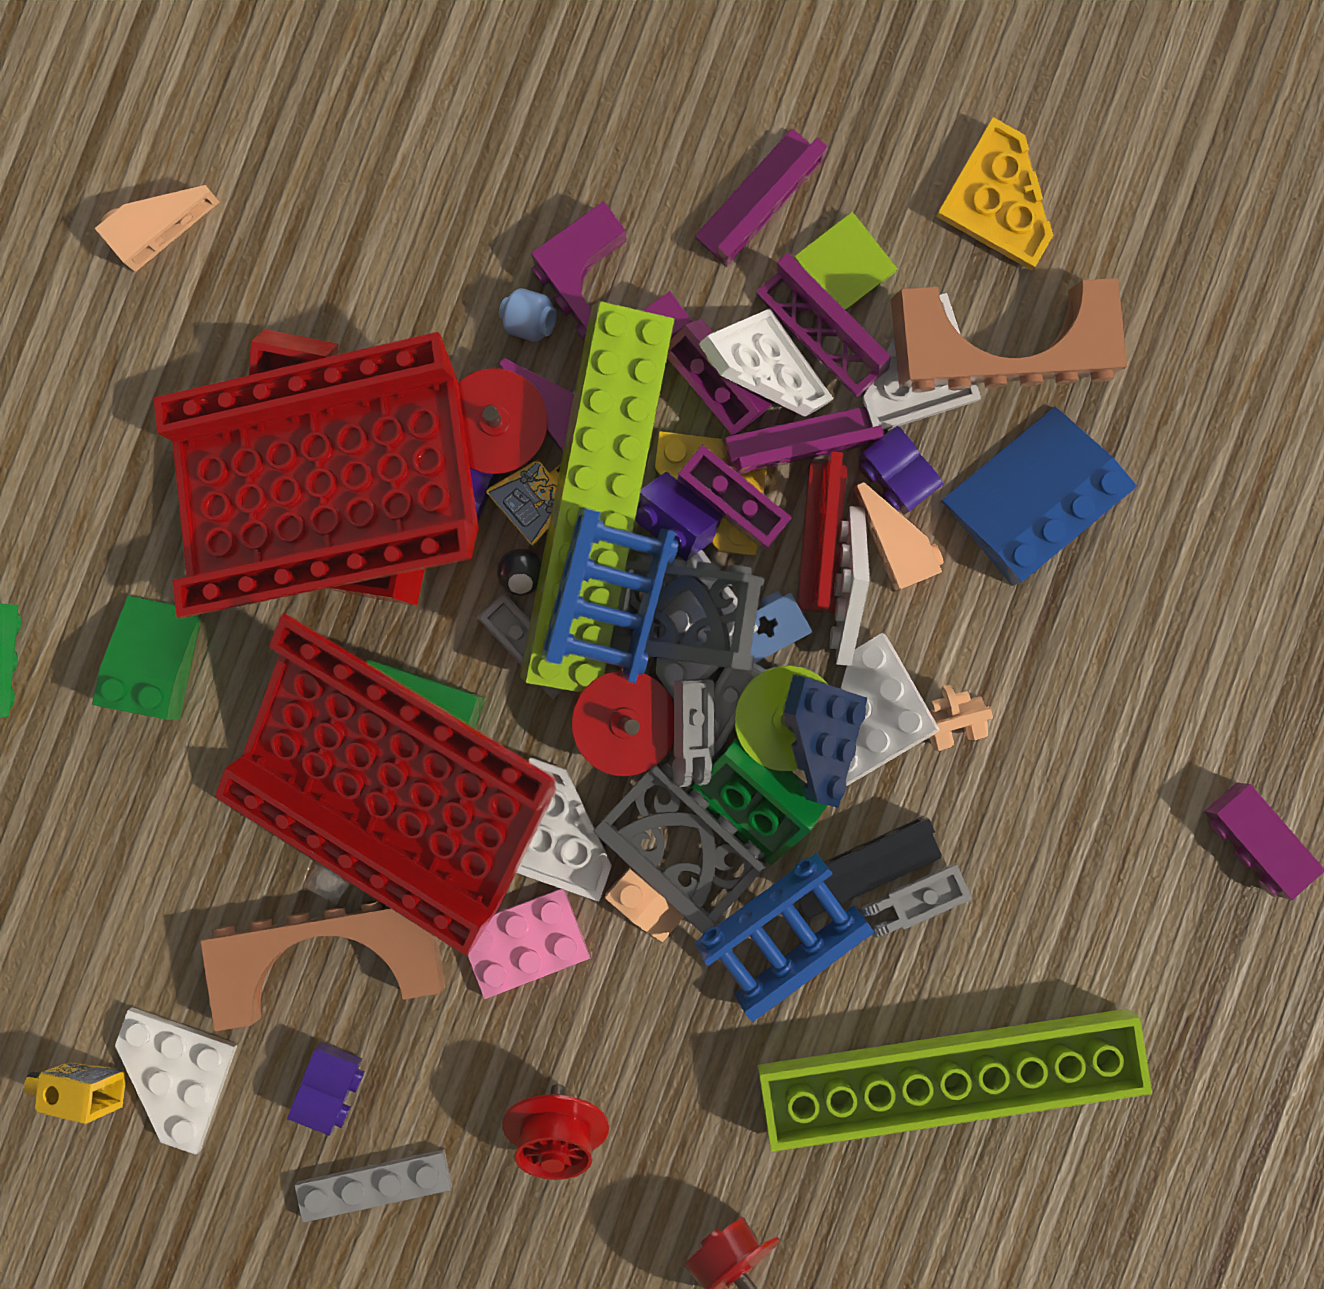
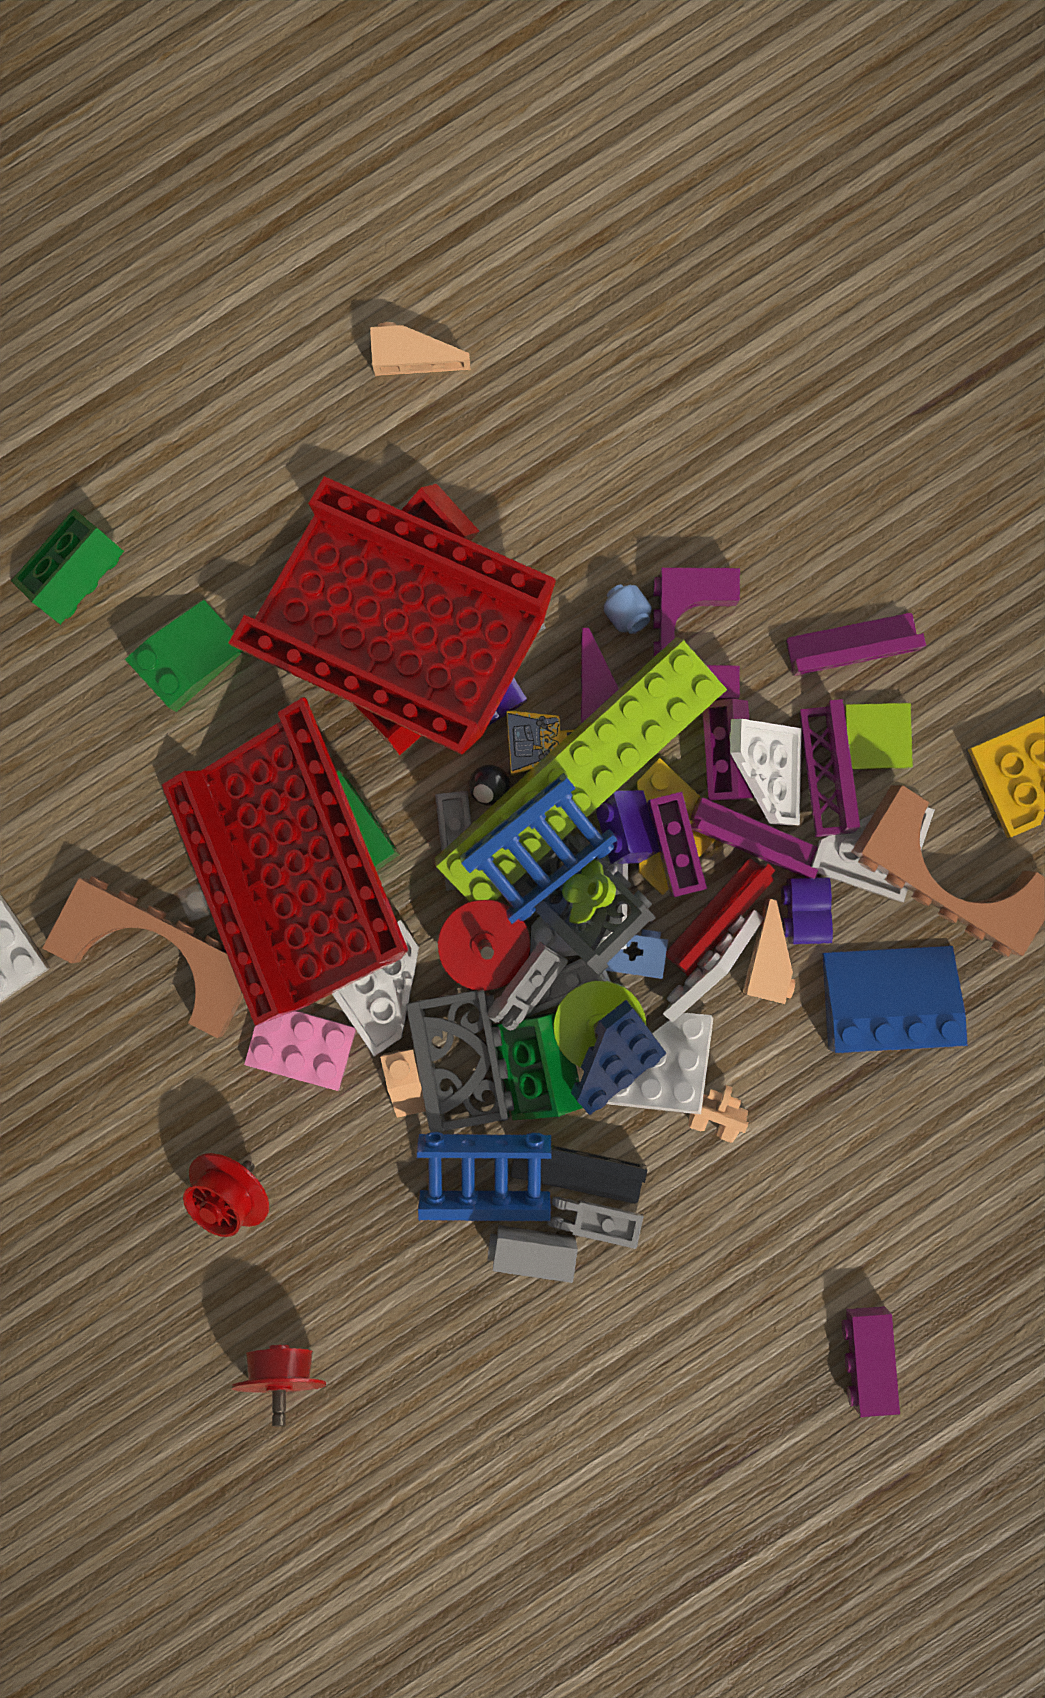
camera: 40 degrees right, 0 degrees up
(325, 1089) = (88, 1045): dark purple brick -> none
(373, 1185) = (71, 1137): light grey plate -> none
(501, 420) = (555, 670): red piece -> none
(684, 601) = (588, 892): none -> lime plate
(881, 974) = (533, 1253): none -> light grey brick
(954, 1079) = (530, 1365): lime brick -> none

